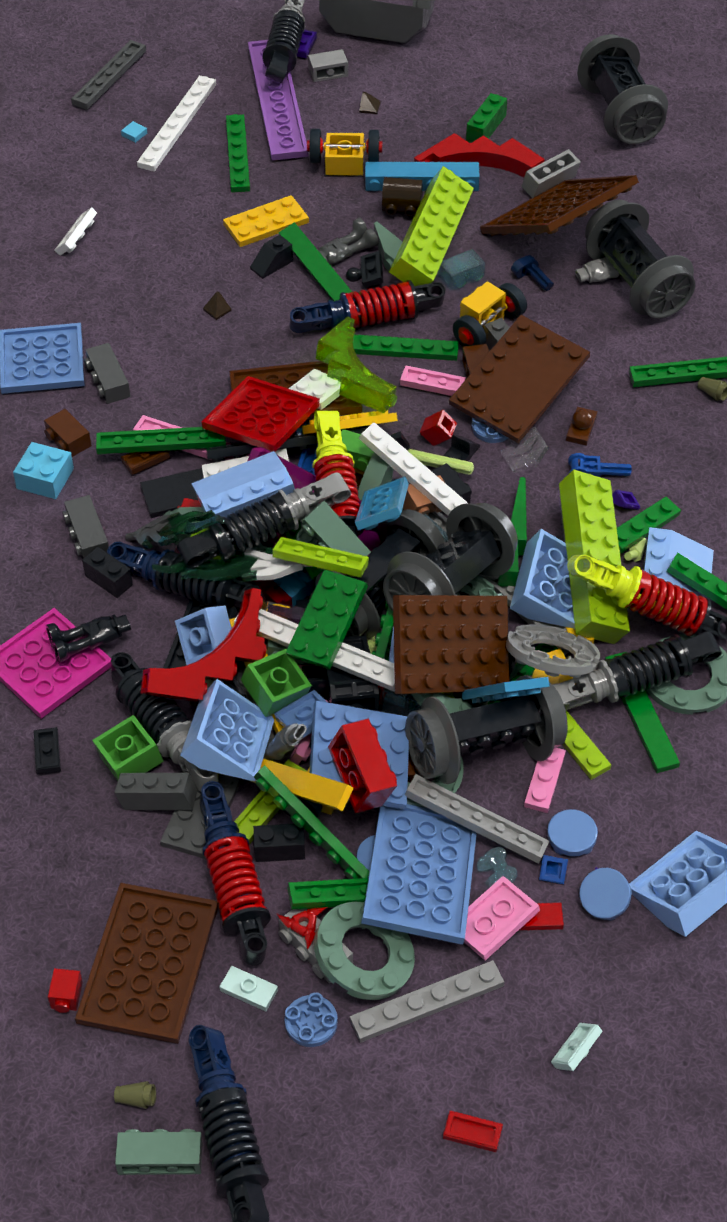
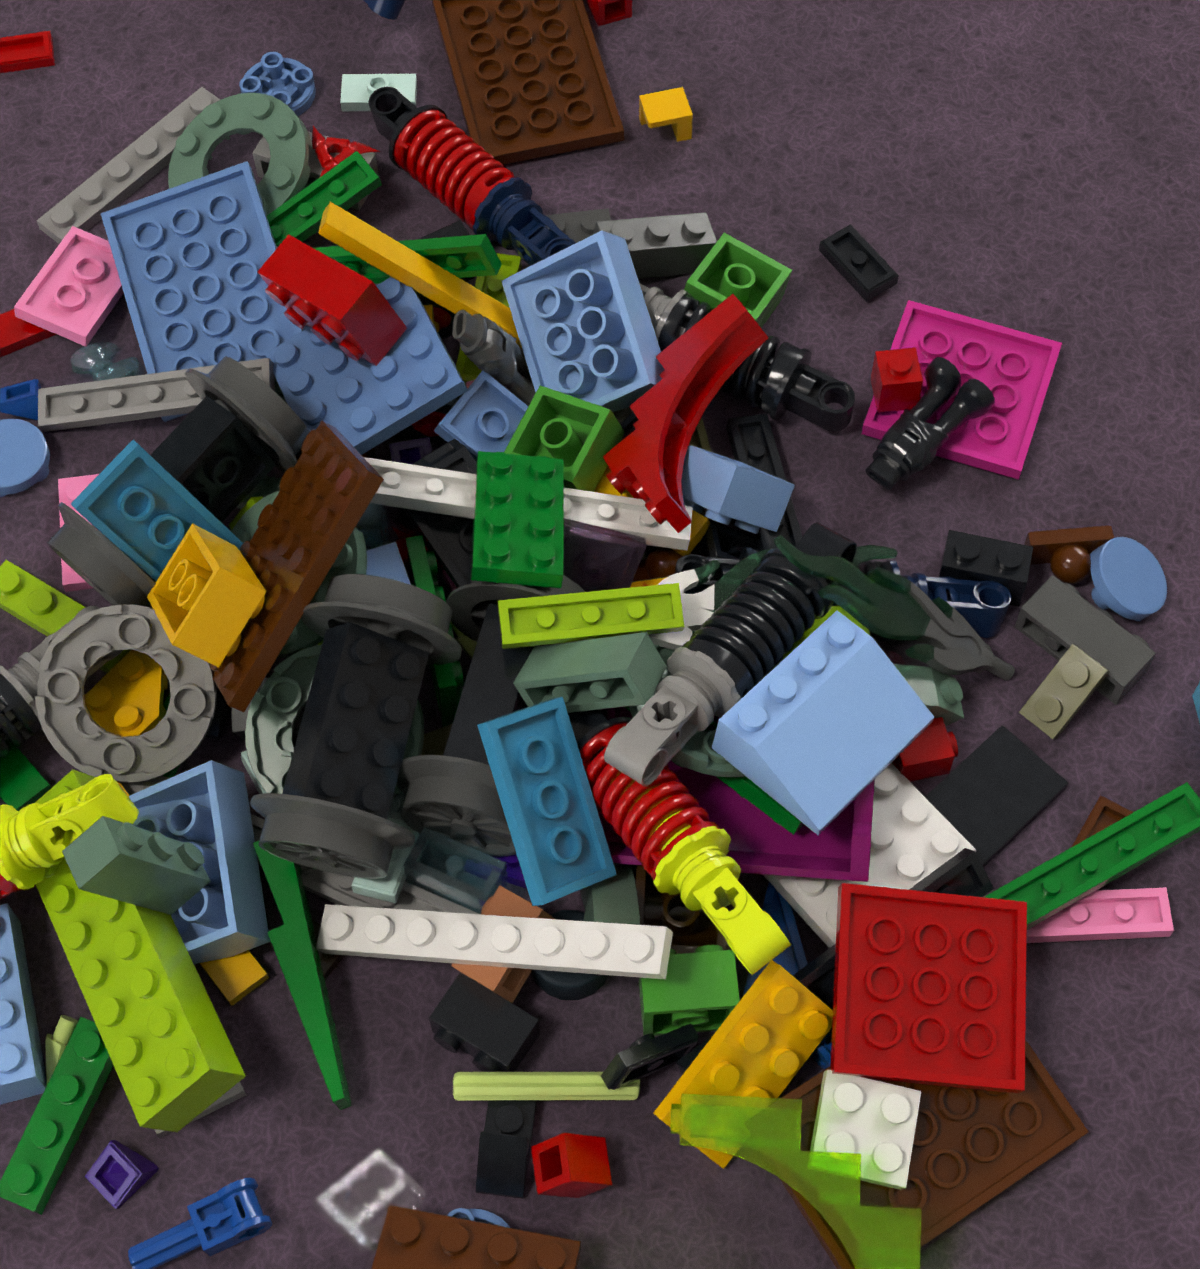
camera: 155 degrees right, 10 degrees up
(47, 541) = (1127, 579): none -> medium blue tile
(61, 566) = (1068, 550): none -> reddish brown tile
(83, 660) = (896, 379): none -> red brick
(88, 883) = (667, 108): none -> yellow panel
(114, 509) = (1064, 691): none -> olive plate
(497, 642) = (206, 596): none -> yellow brick
(583, 539) = (136, 865): none -> sand green brick

